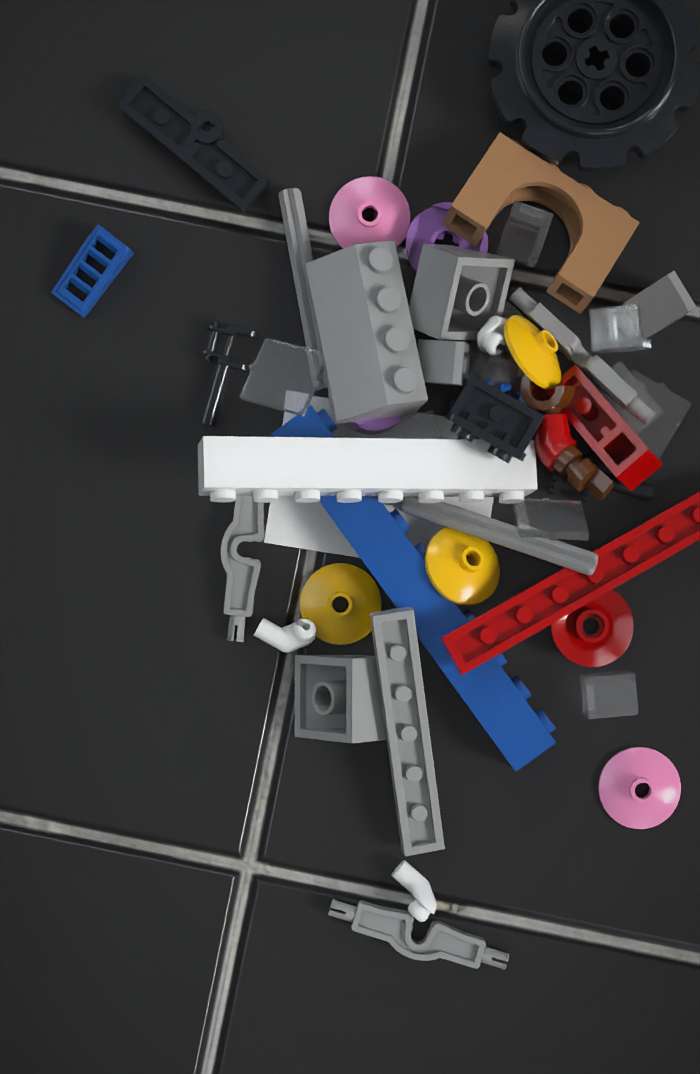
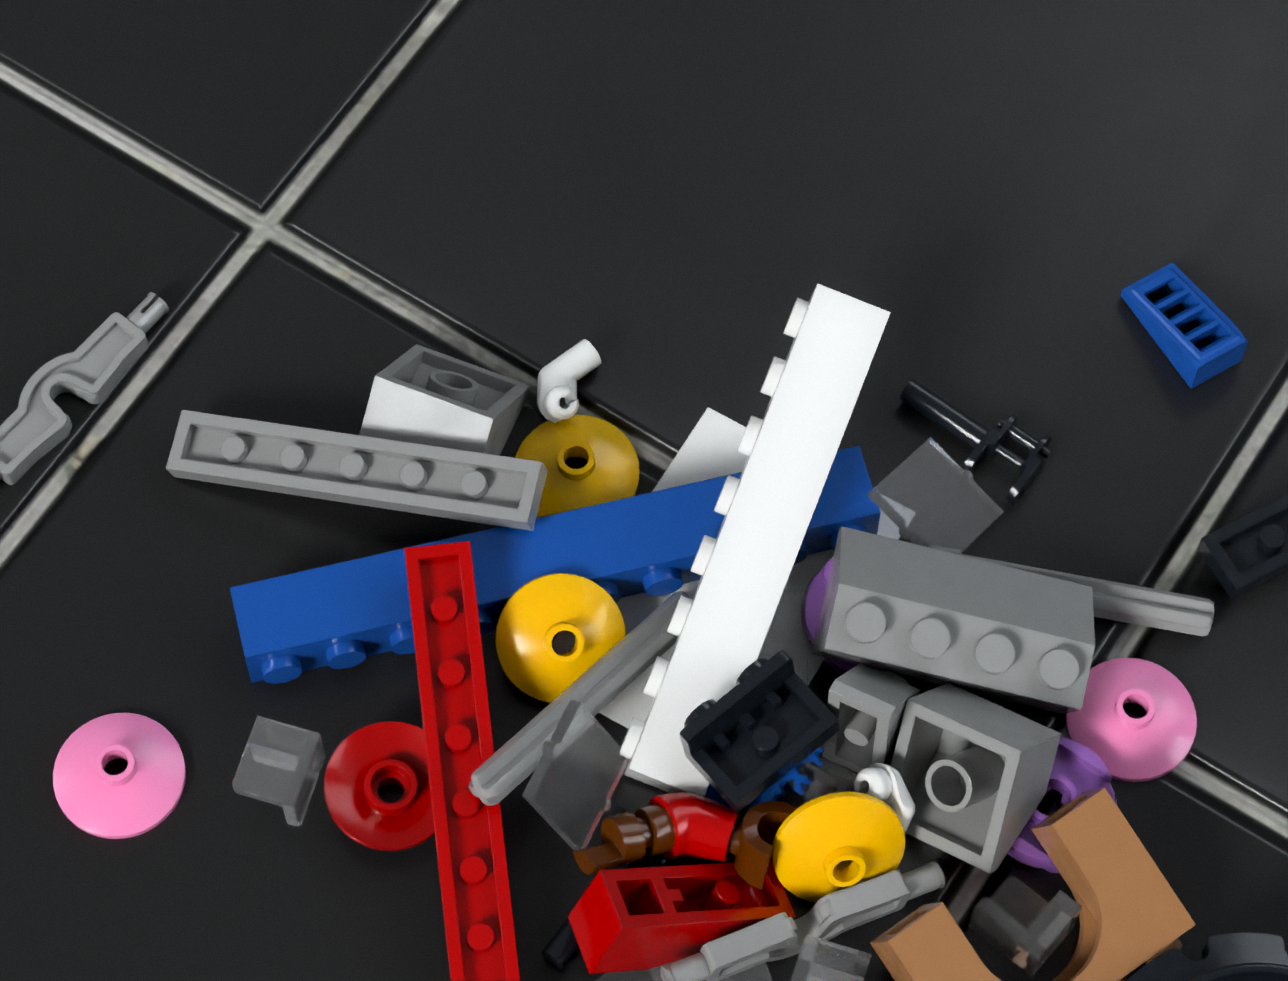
camera: 110 degrees right, 25 degrees down
(241, 571) = (679, 358): light grey piece -> none
(419, 888) = (121, 419): white arm -> none

